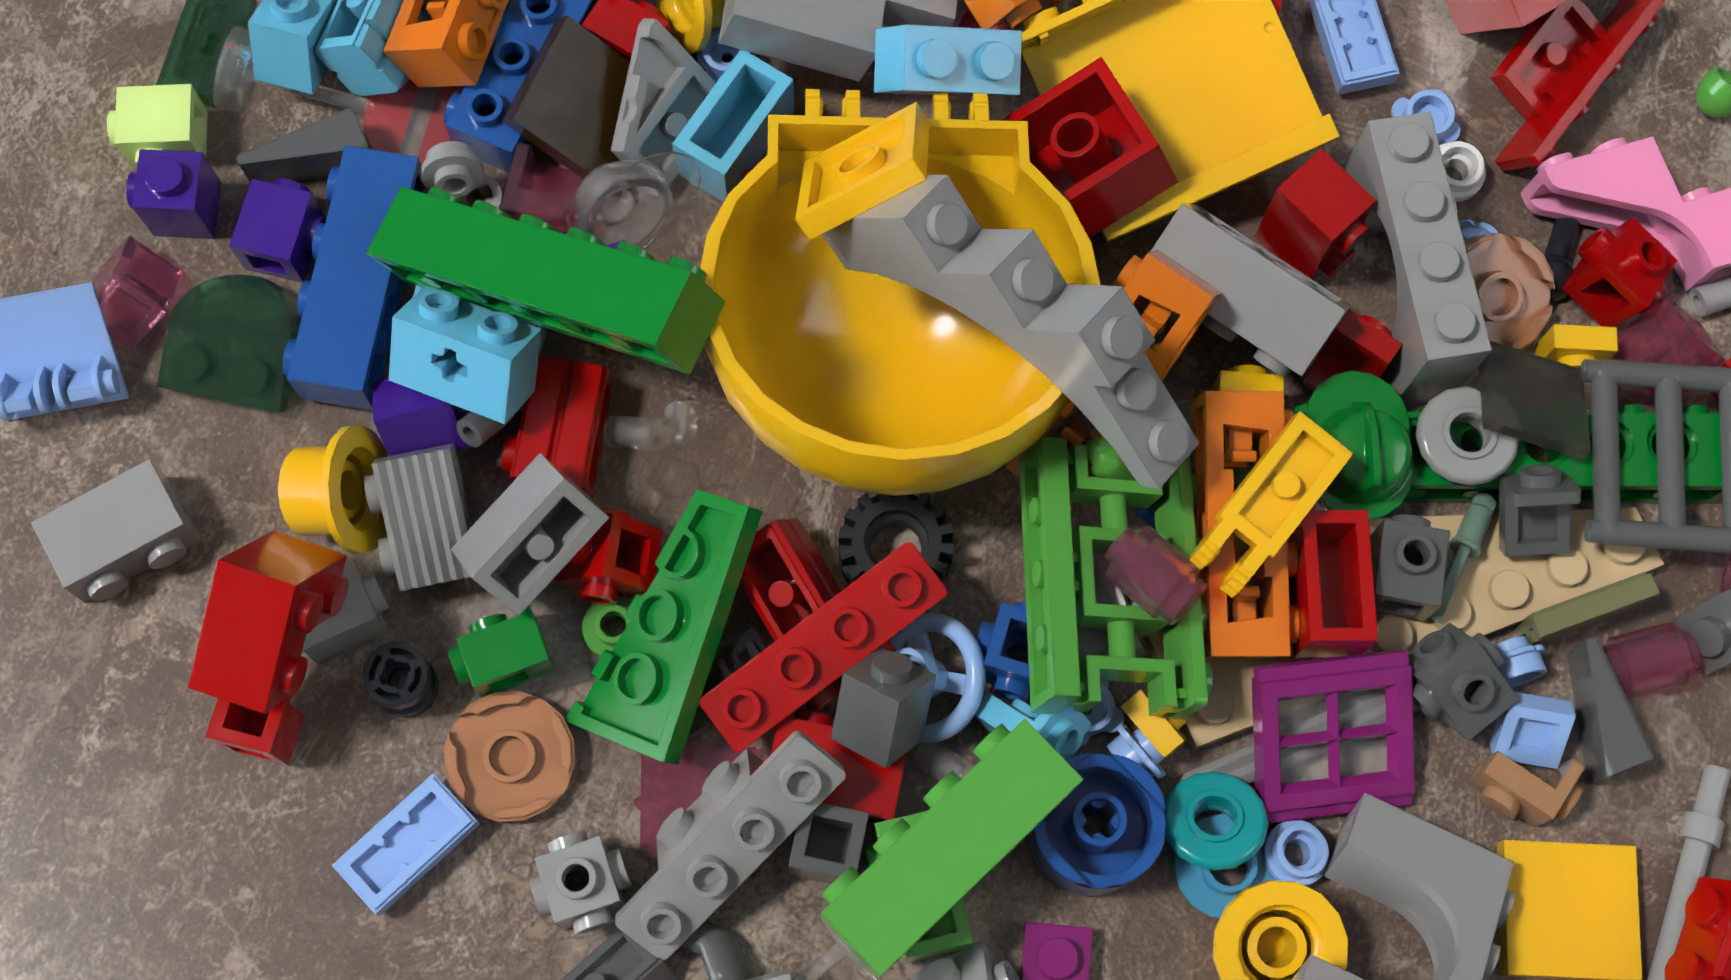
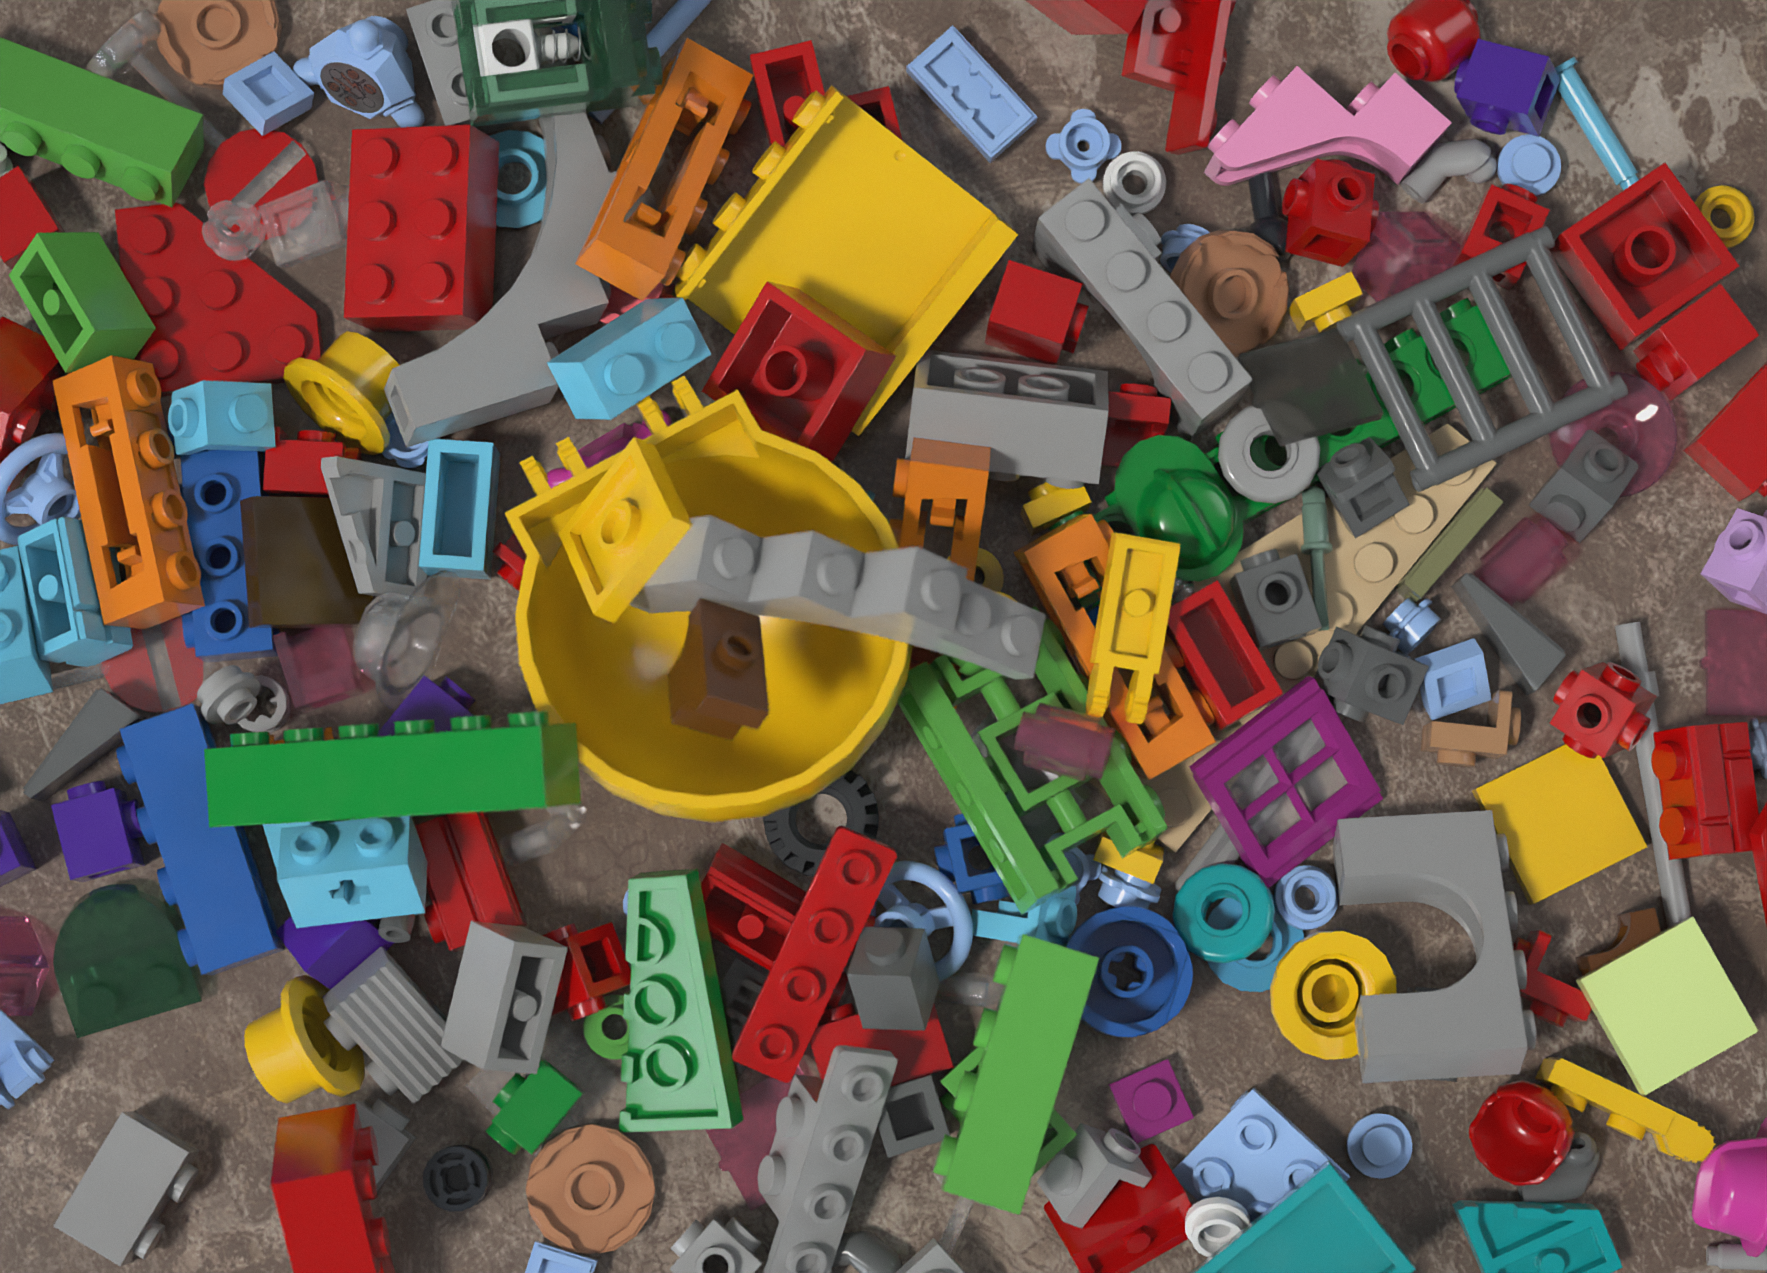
camera: 30 degrees left, 10 degrees up
(877, 324) = (719, 673): none -> reddish brown brick
(1677, 847) = (1621, 705): none -> red brick

